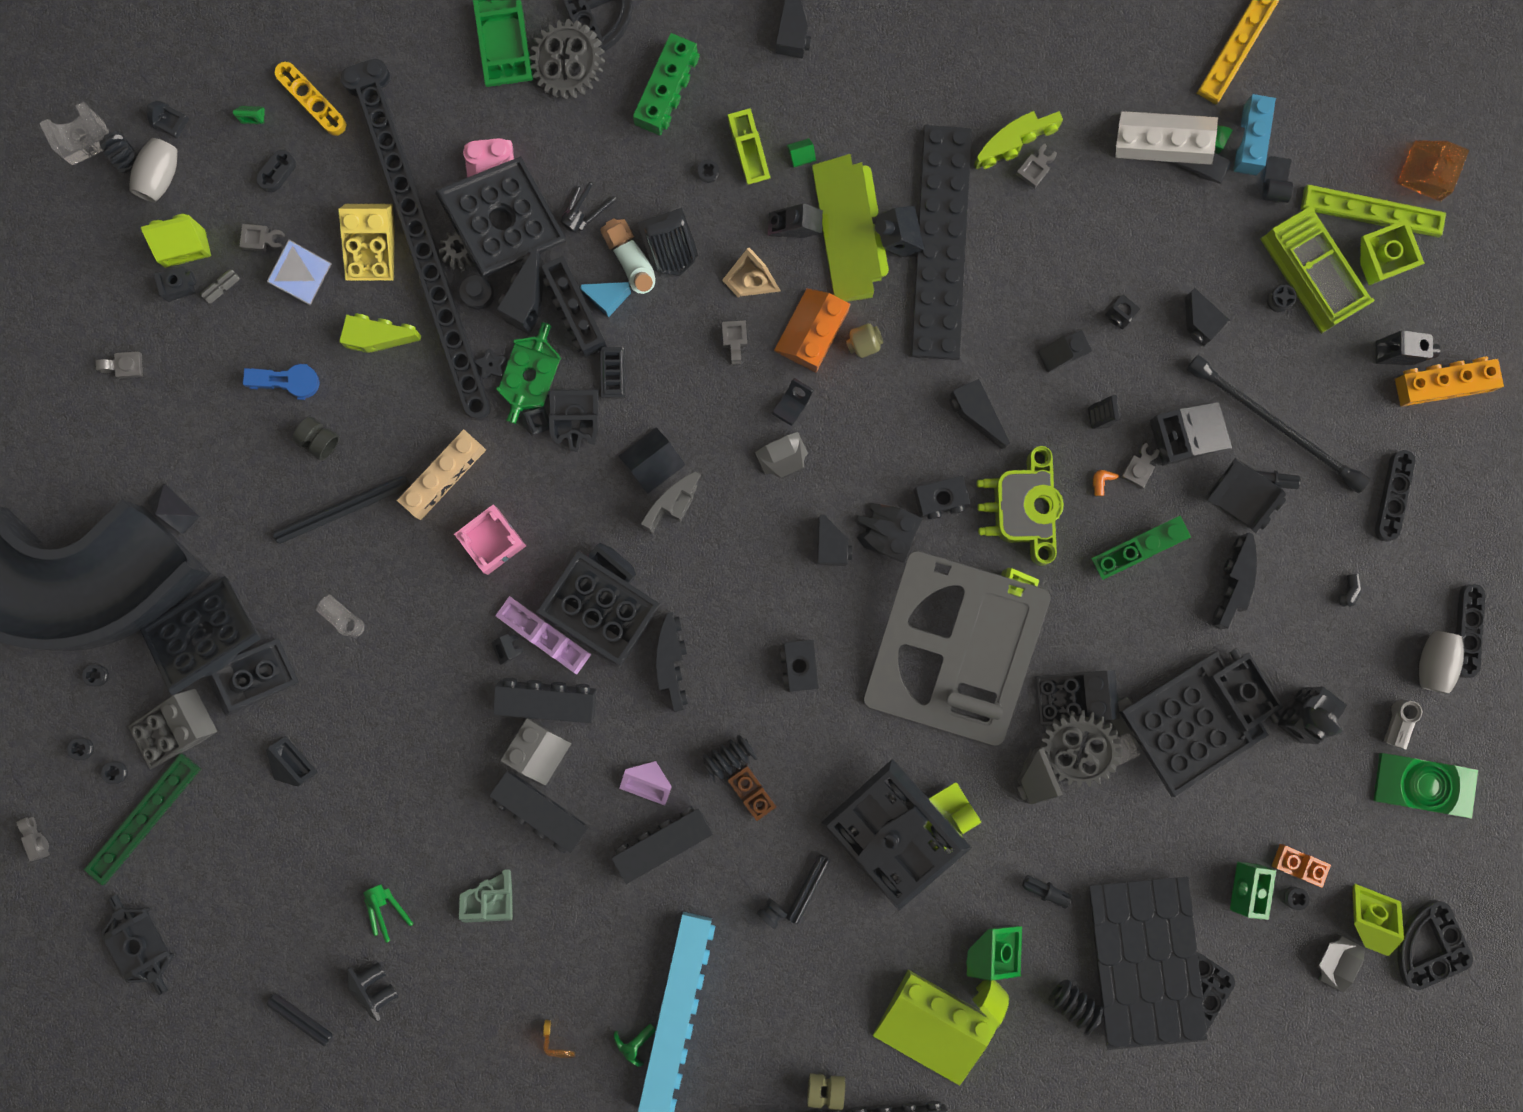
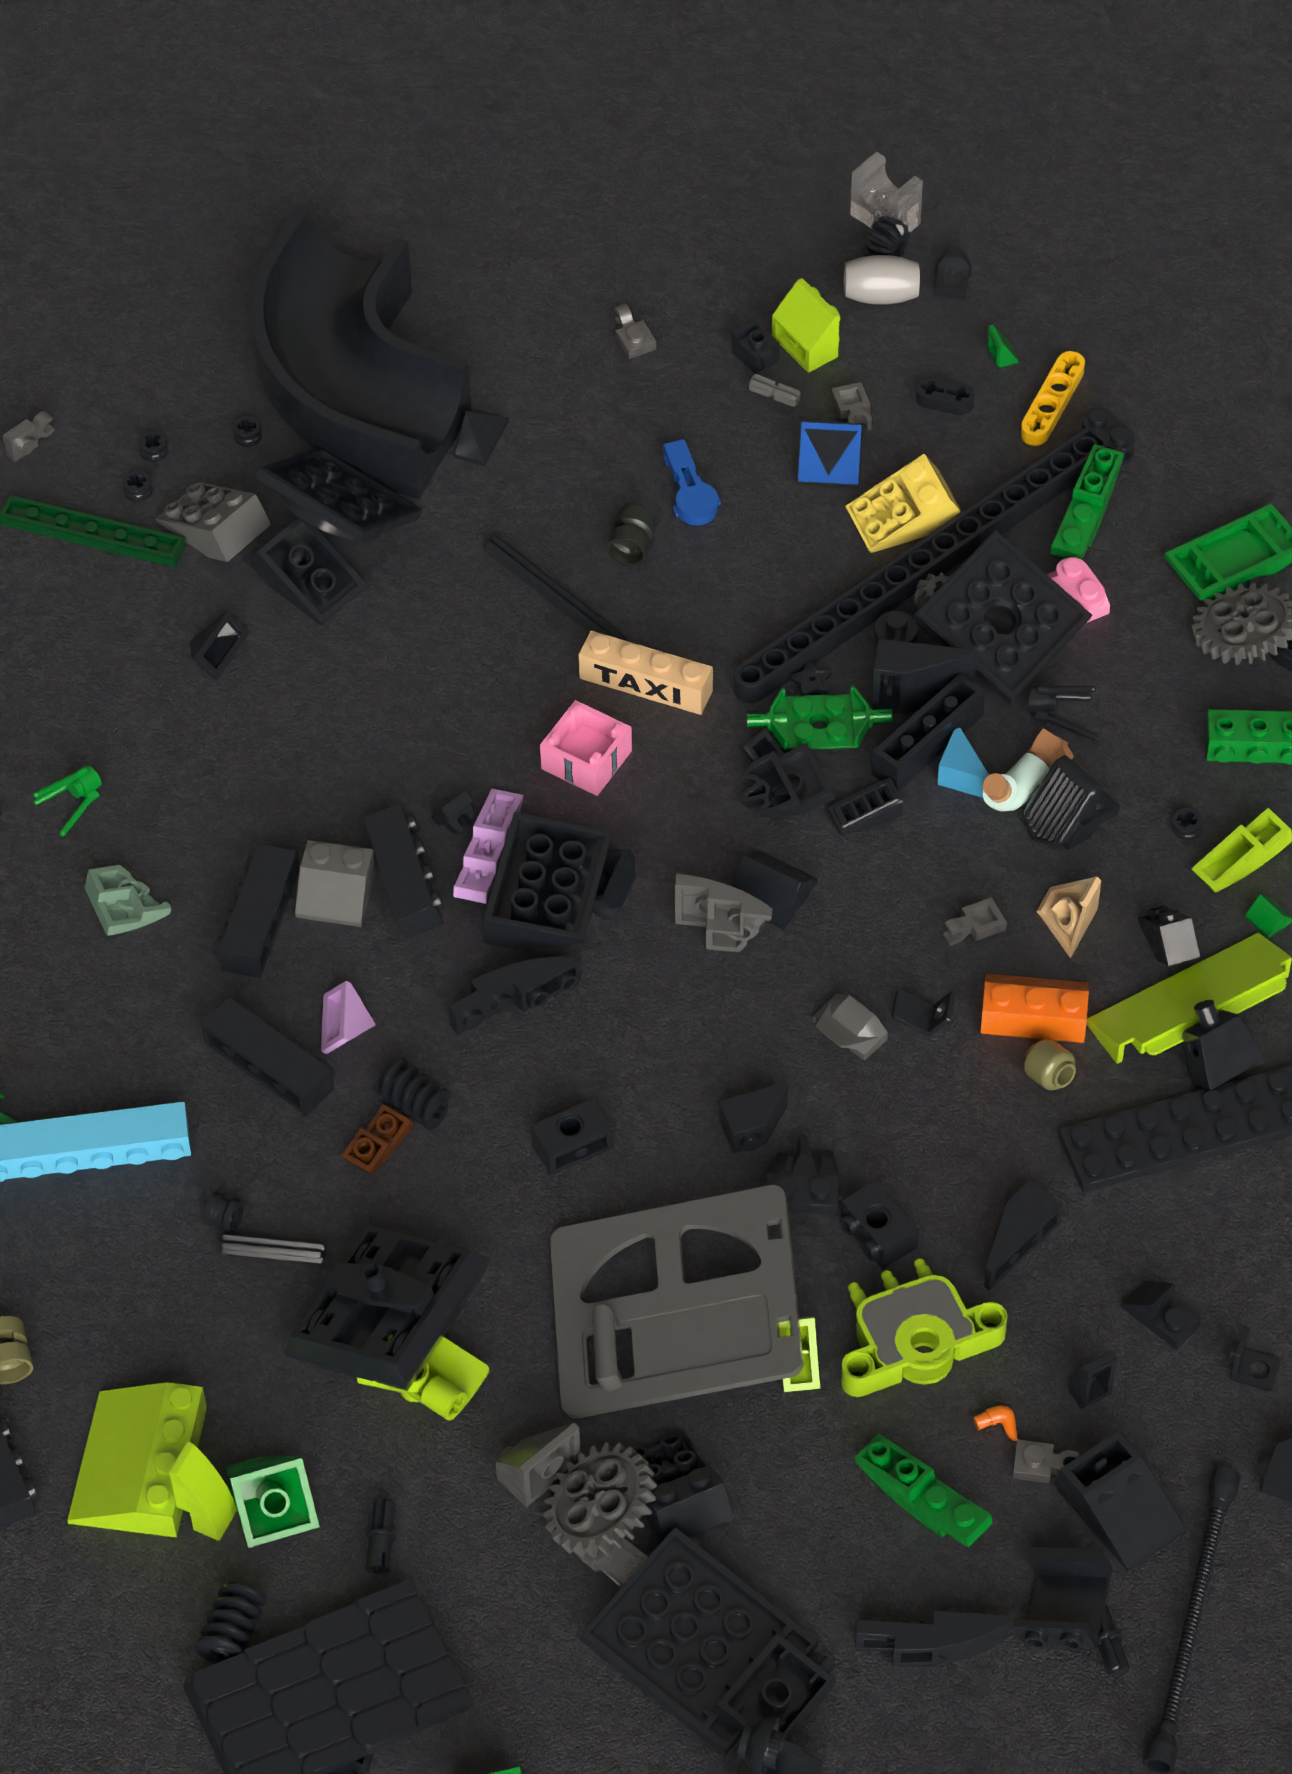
camera: 75 degrees right, 30 degrees down
(339, 616) = (419, 634): clear piece -> none
(371, 336) = (787, 551): lime slope -> none
(421, 117) = (1088, 503): none -> green slope

